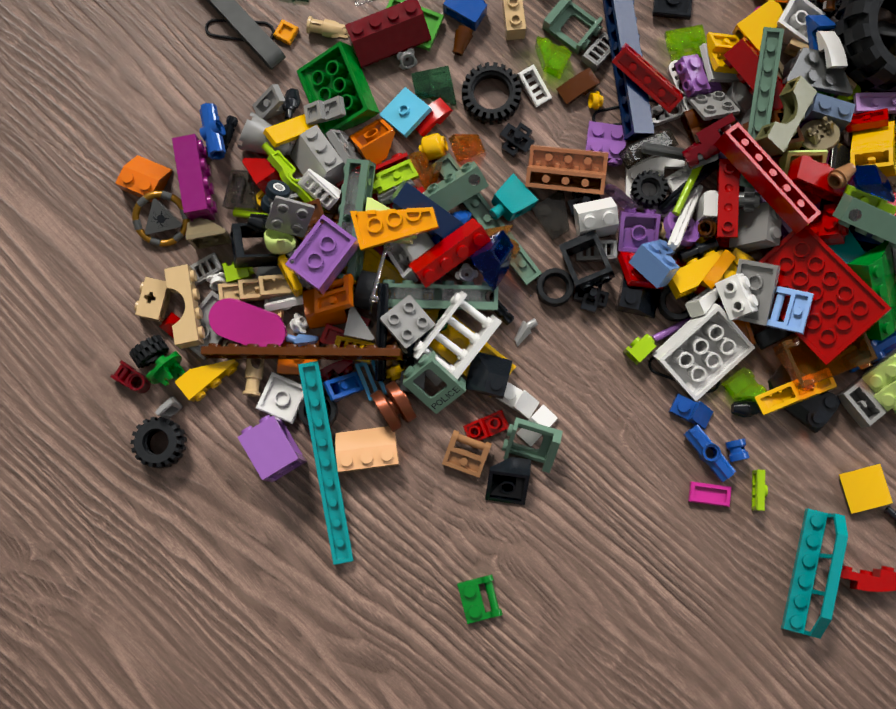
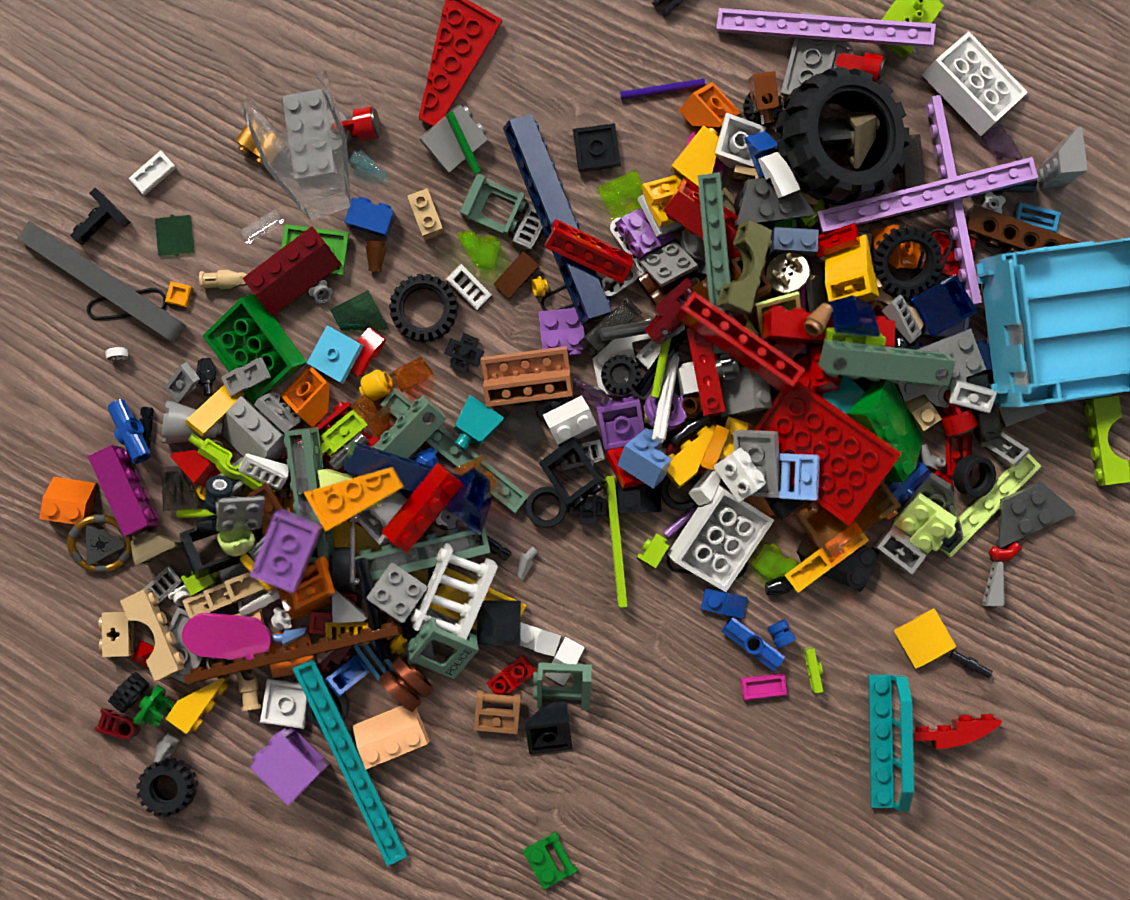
camera: 15 degrees left, 5 degrees up
(220, 66) = (116, 354): none -> white tile
(609, 332) = (616, 541): none -> lime tile

